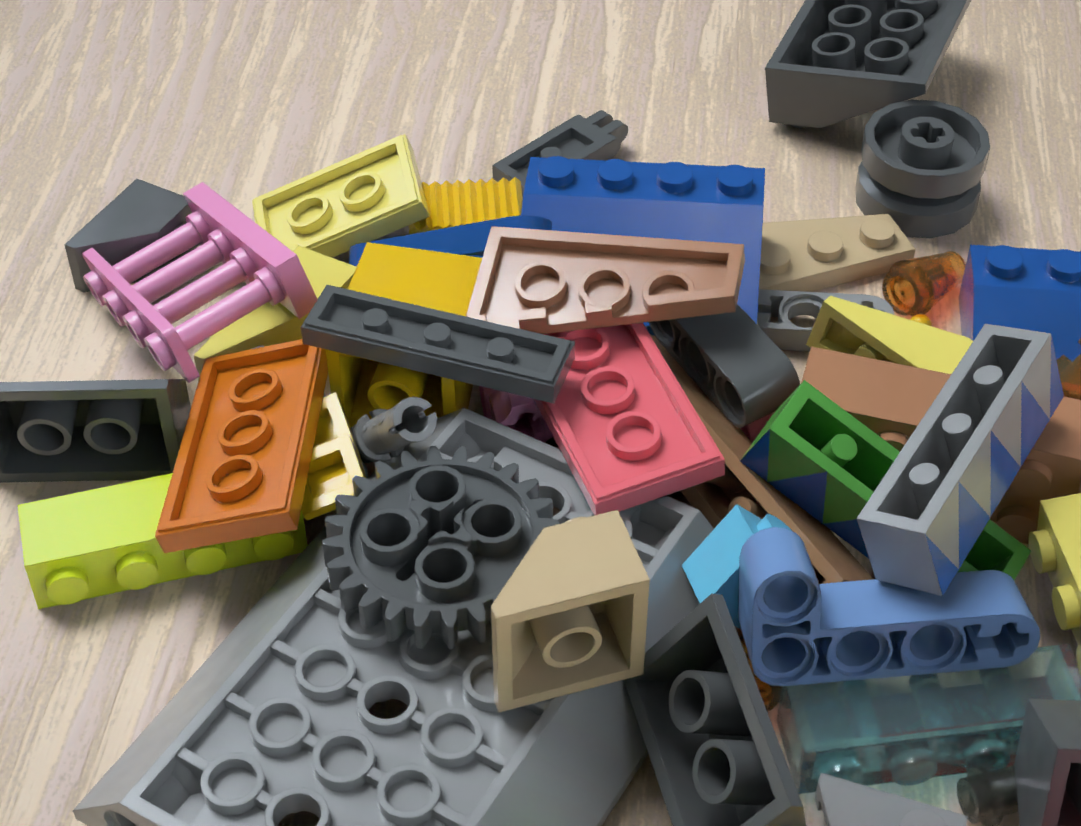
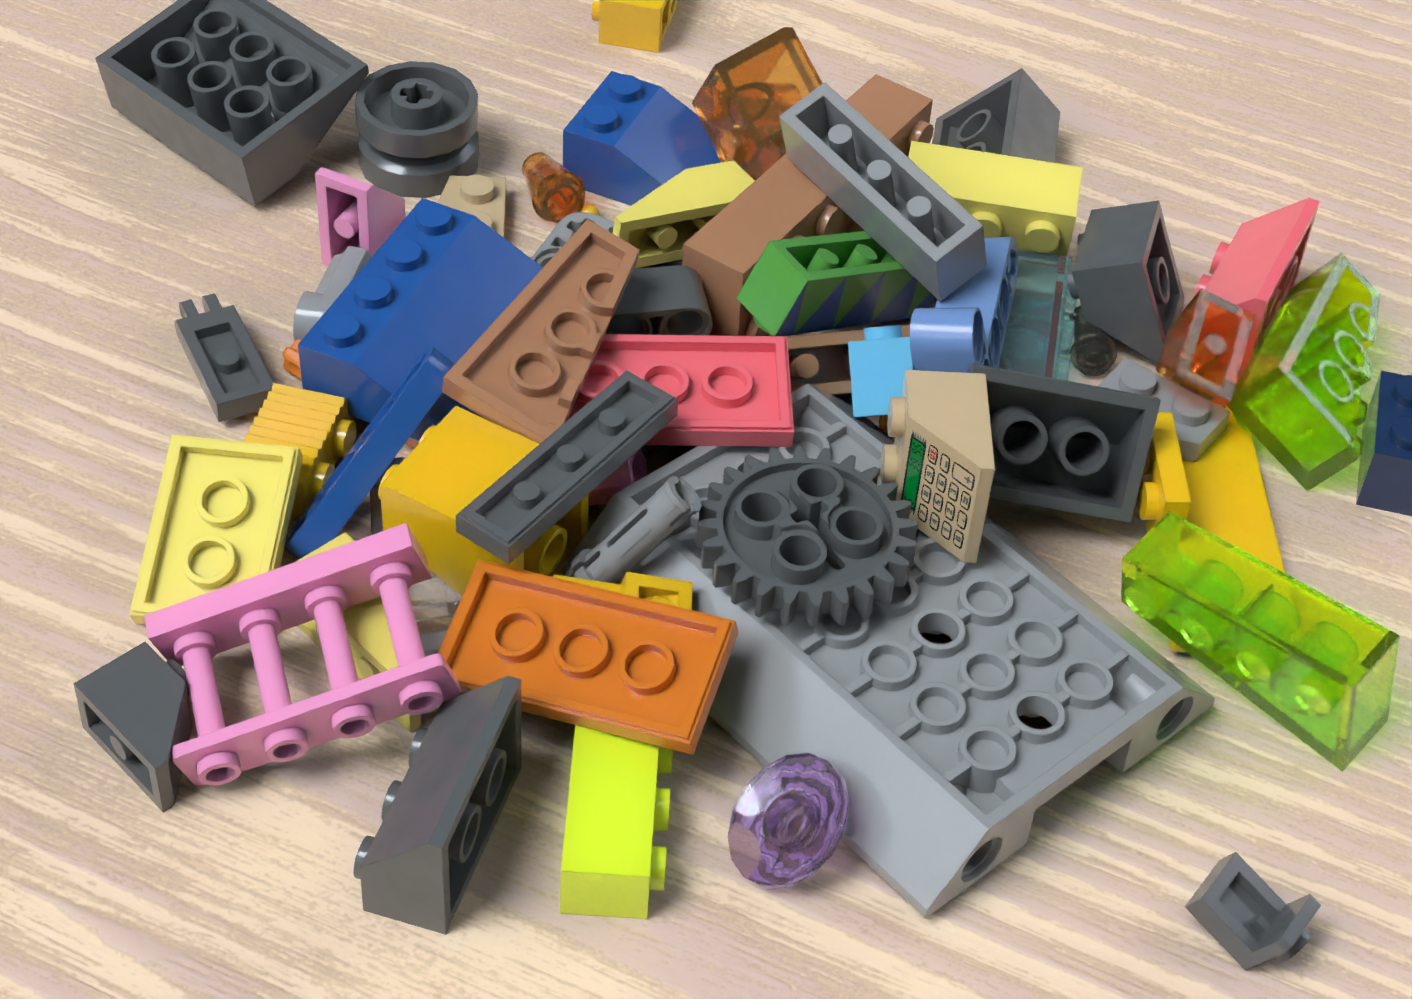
camera: 75 degrees left, 0 degrees up
(145, 671) = (788, 821): none -> clear purple dish
(769, 145) = (354, 214): none -> bright pink slope

